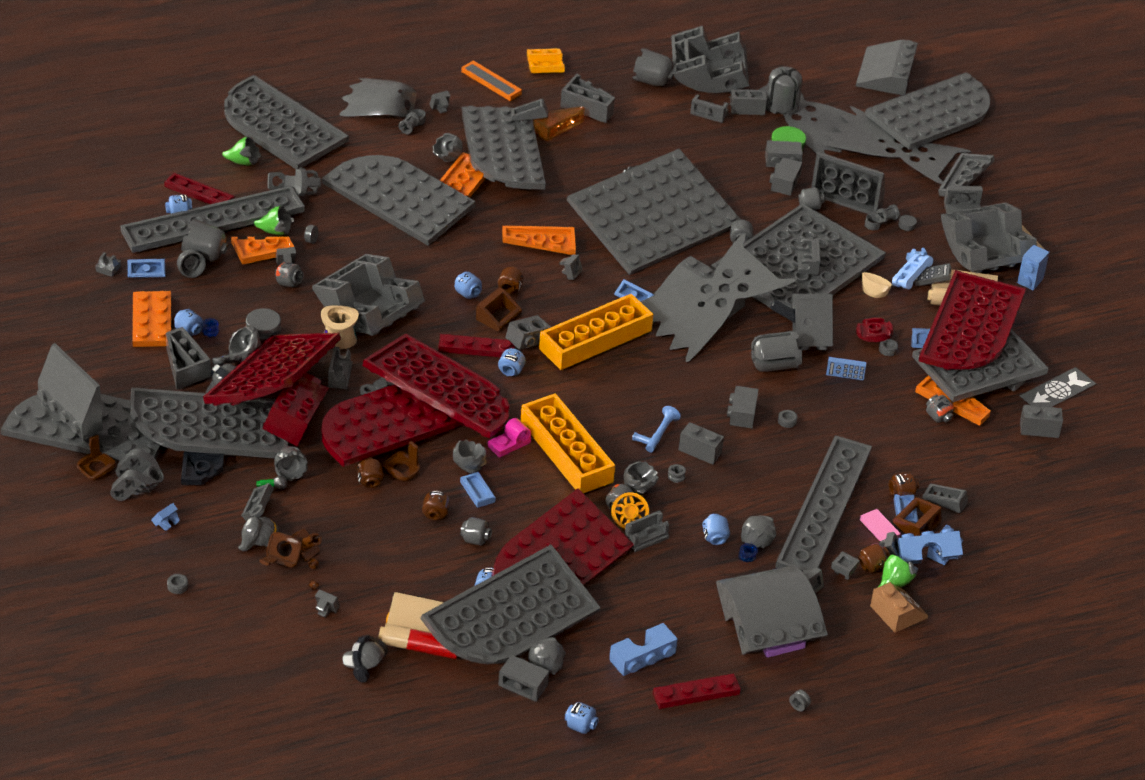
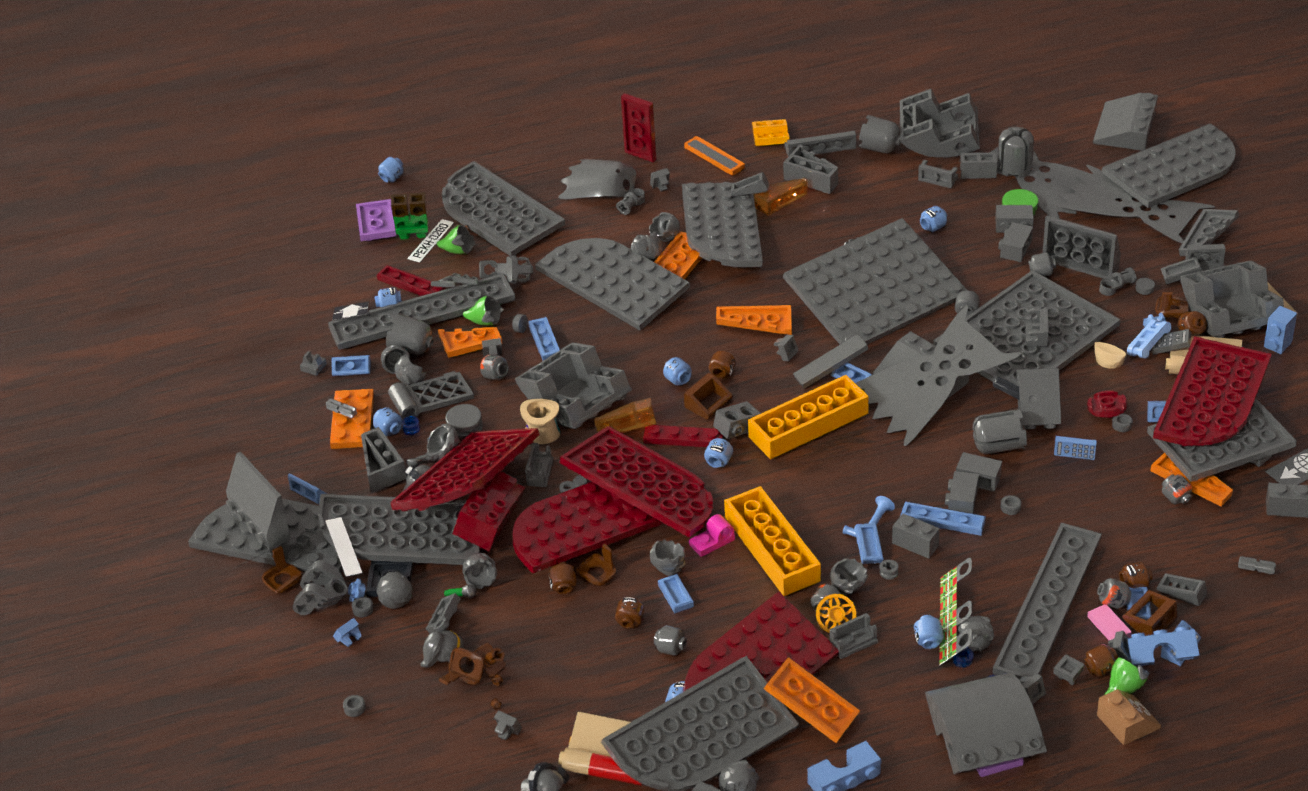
camera: 10 degrees right, 0 degrees up
(113, 383) = (304, 488): none -> medium blue slope
(142, 215) = (350, 310): none -> sticker
(145, 309) = (344, 409): none -> piece
(158, 437) = (343, 546): none -> white sticker
(159, 128) = (375, 220): none -> medium lavender plate
(170, 79) = (390, 169): none -> medium blue head
(171, 478) = (356, 590): none -> medium blue plate
(177, 494) = (362, 607): none -> dark grey tile
(196, 131) = (410, 222): none -> hips
(205, 276) = (408, 372): none -> dark grey hair
(208, 305) = (409, 402): none -> dark grey piece
(209, 479) = (394, 590): none -> dark grey hair
(214, 151) = (432, 238): none -> white sticker
(242, 189) = (450, 281): none -> dark grey piece
(335, 249) = (543, 337): none -> medium blue plate
(419, 49) = (638, 127): none -> dark red tile
(424, 326) = (628, 417): none -> clear orange slope
(433, 164) = (647, 245): none -> dark grey hair
(597, 74) = (824, 143): none -> dark grey fence
(612, 586) = (811, 700): none -> orange plate
(614, 281) = (830, 361): none -> dark grey tile
(657, 449) = (868, 543): none -> medium blue tile
(707, 151) = (933, 219): none -> medium blue head
(729, 429) = (946, 518): none -> medium blue tile
(735, 513) = (950, 614): none -> piece
(766, 385) = (987, 468): none -> dark grey brick
(884, 499) = (1114, 593): none -> dark grey head
(925, 241) = (1164, 303): none -> reddish brown piece
(934, 210) = (1173, 272): none -> dark grey tile
(954, 256) = (1193, 321): none -> reddish brown head
(1017, 479) = (1251, 564): none -> dark grey piece

